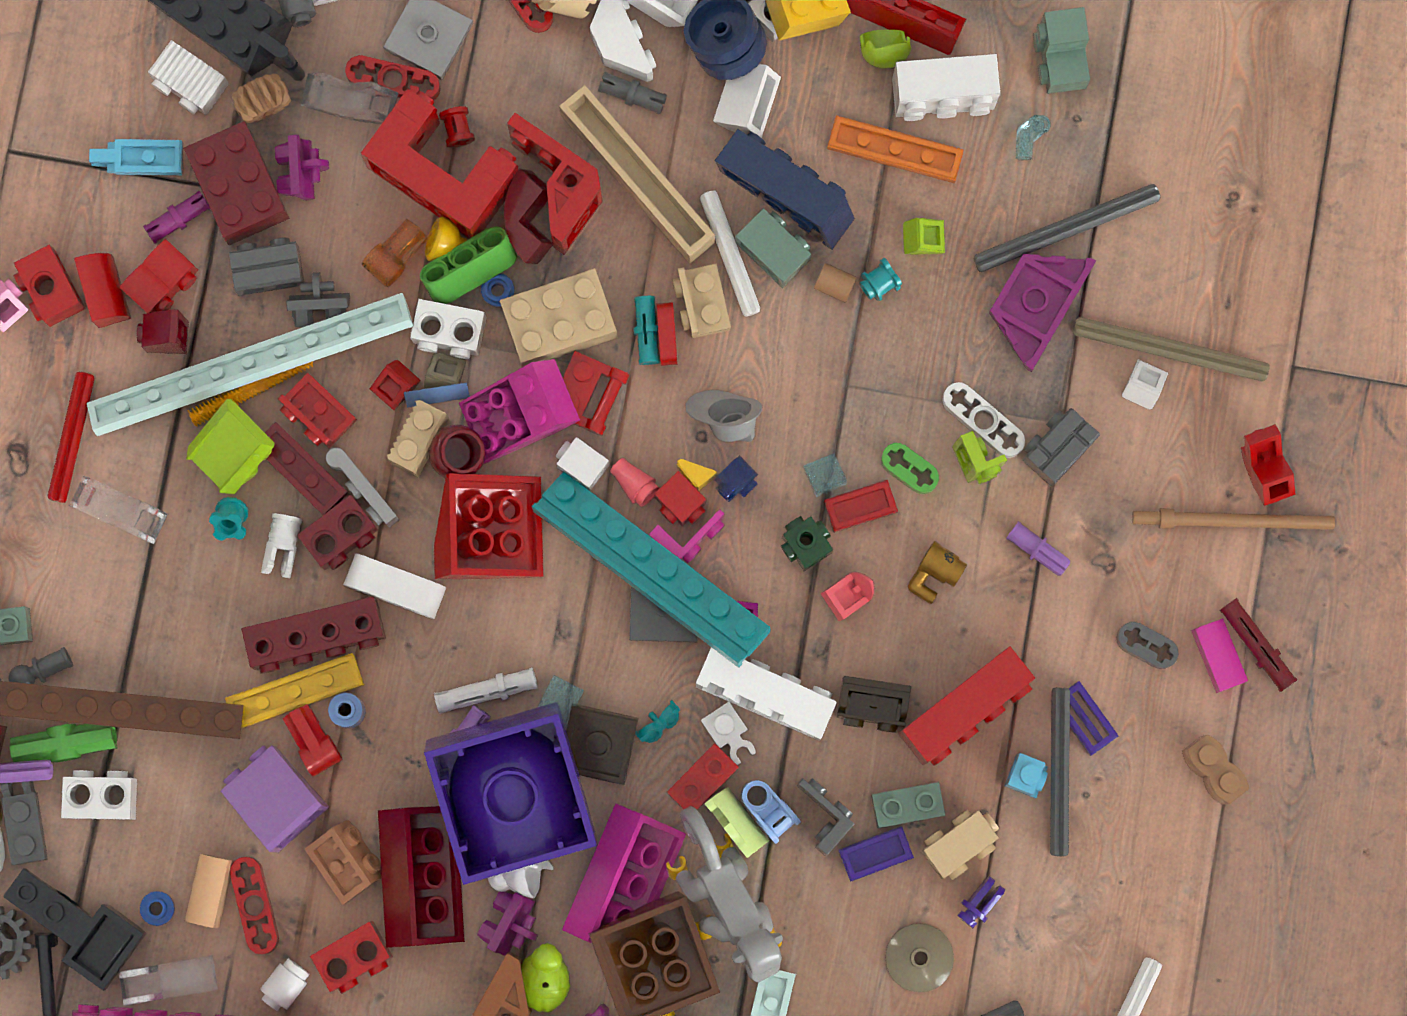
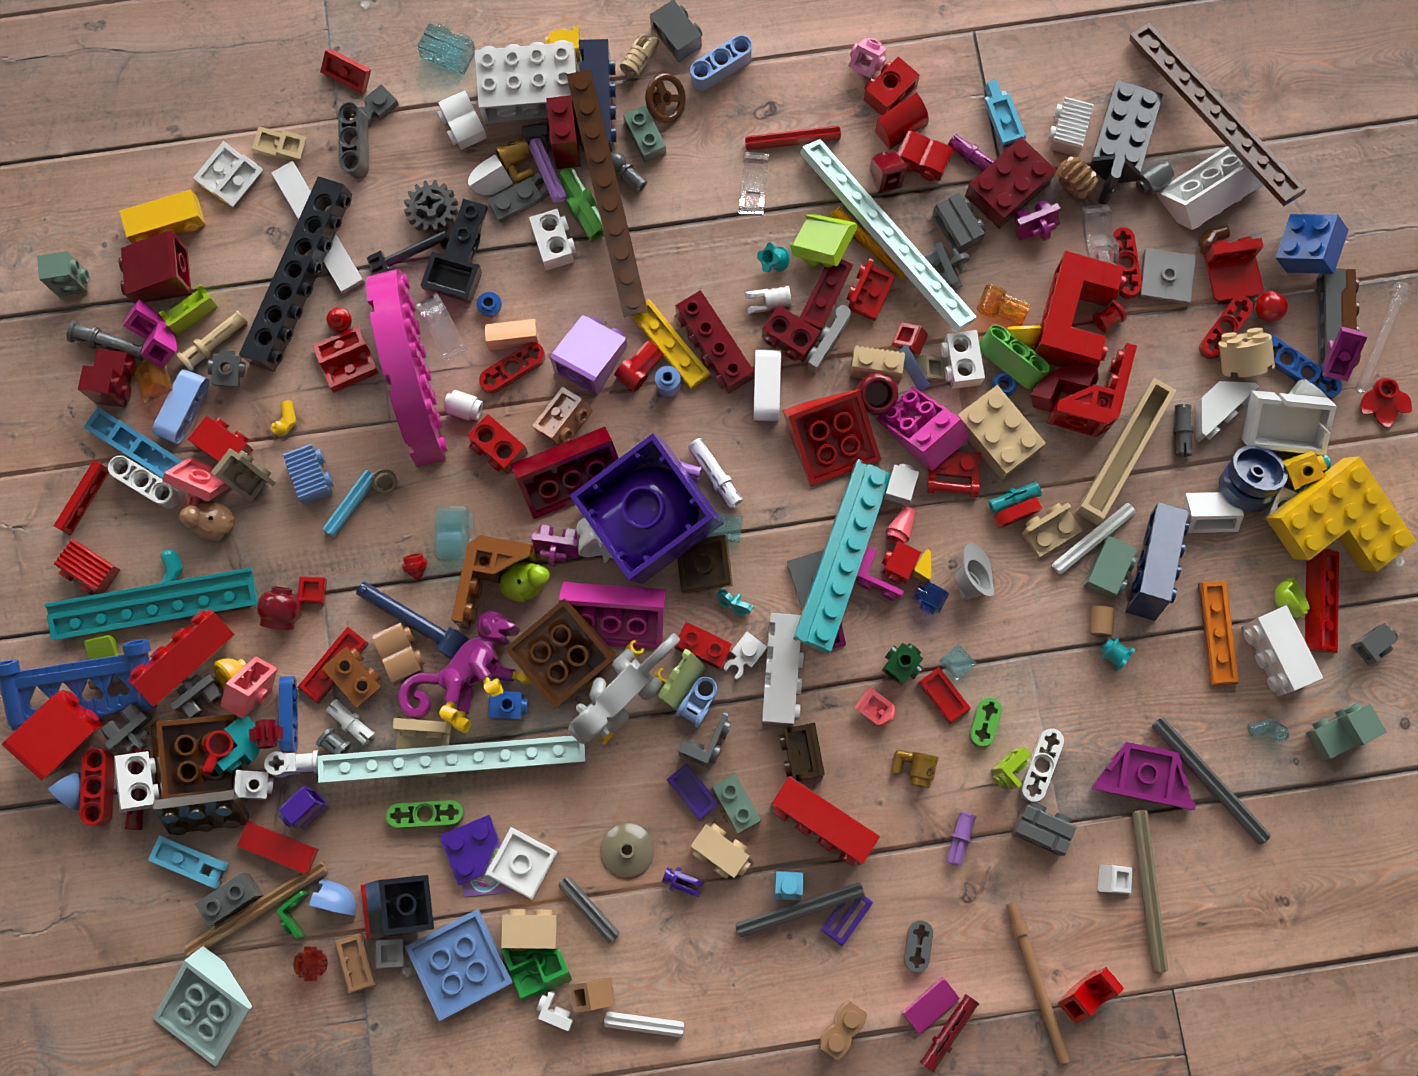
camera: 75 degrees right, 5 degrees down
(923, 236) = (1161, 675): lime slope -> none

